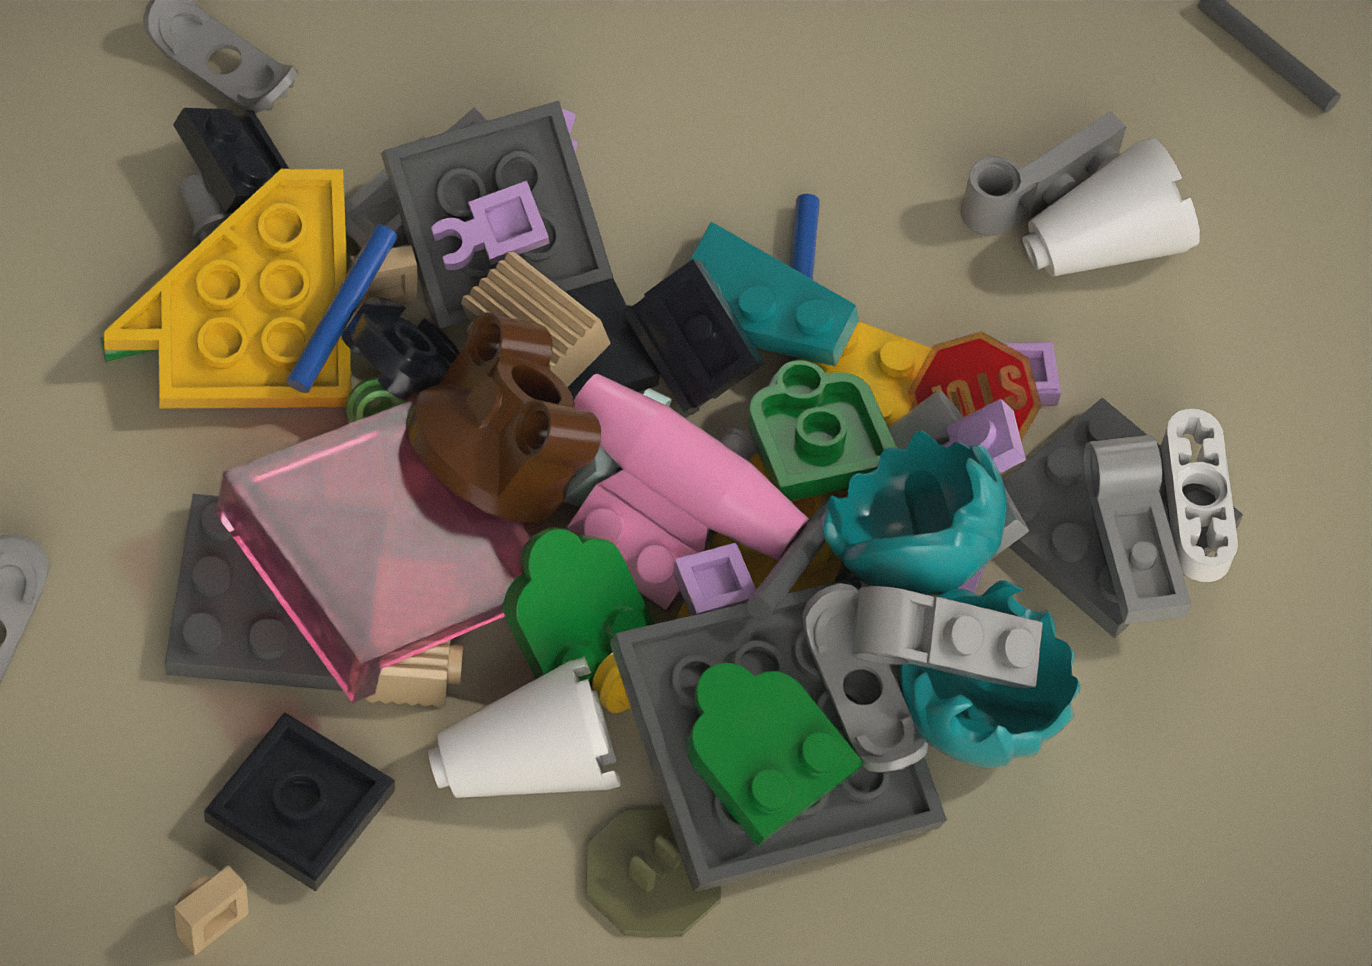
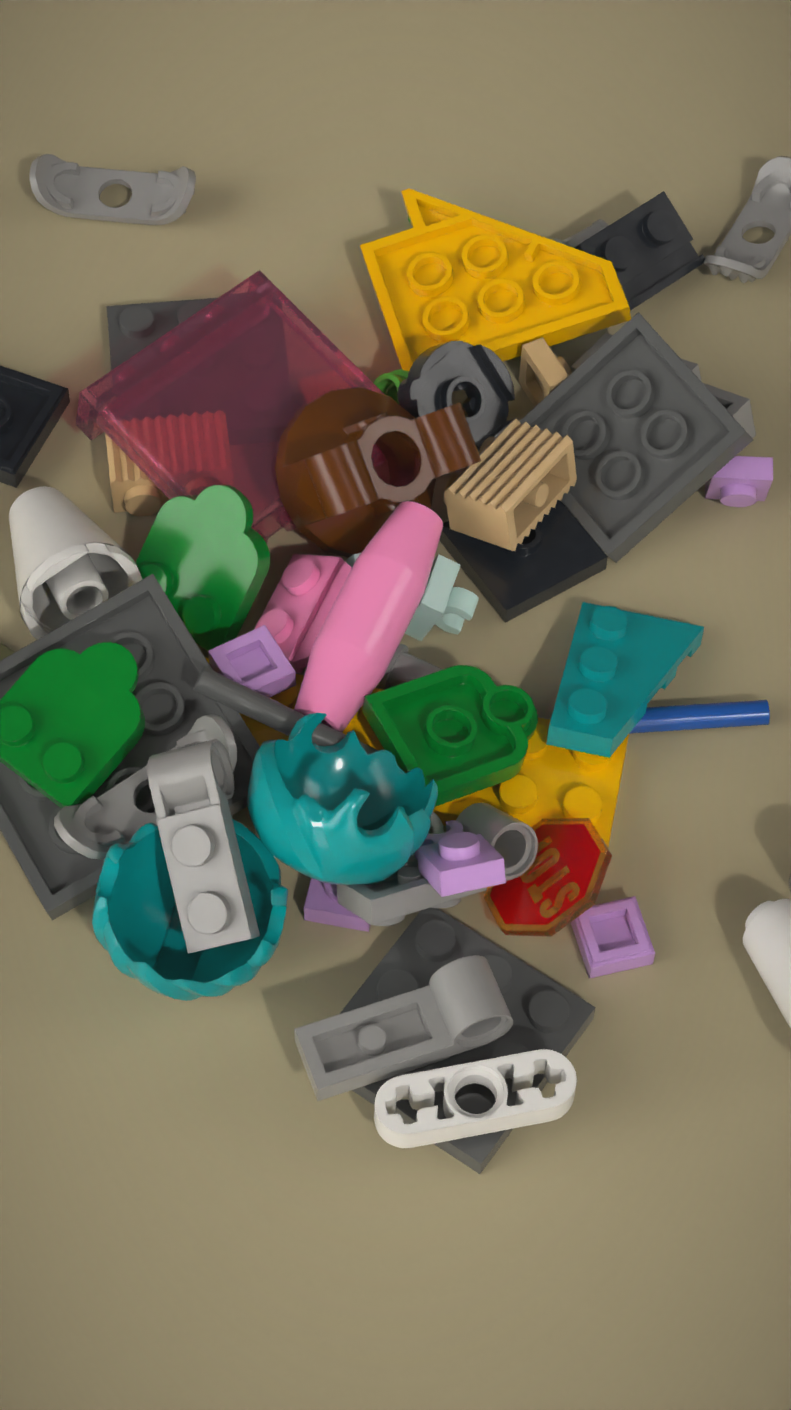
camera: 85 degrees right, 0 degrees up
(341, 308) = (495, 339): blue bar -> none
(500, 225) = (597, 425): lavender plate -> none
(693, 336) = (544, 619): black plate -> none

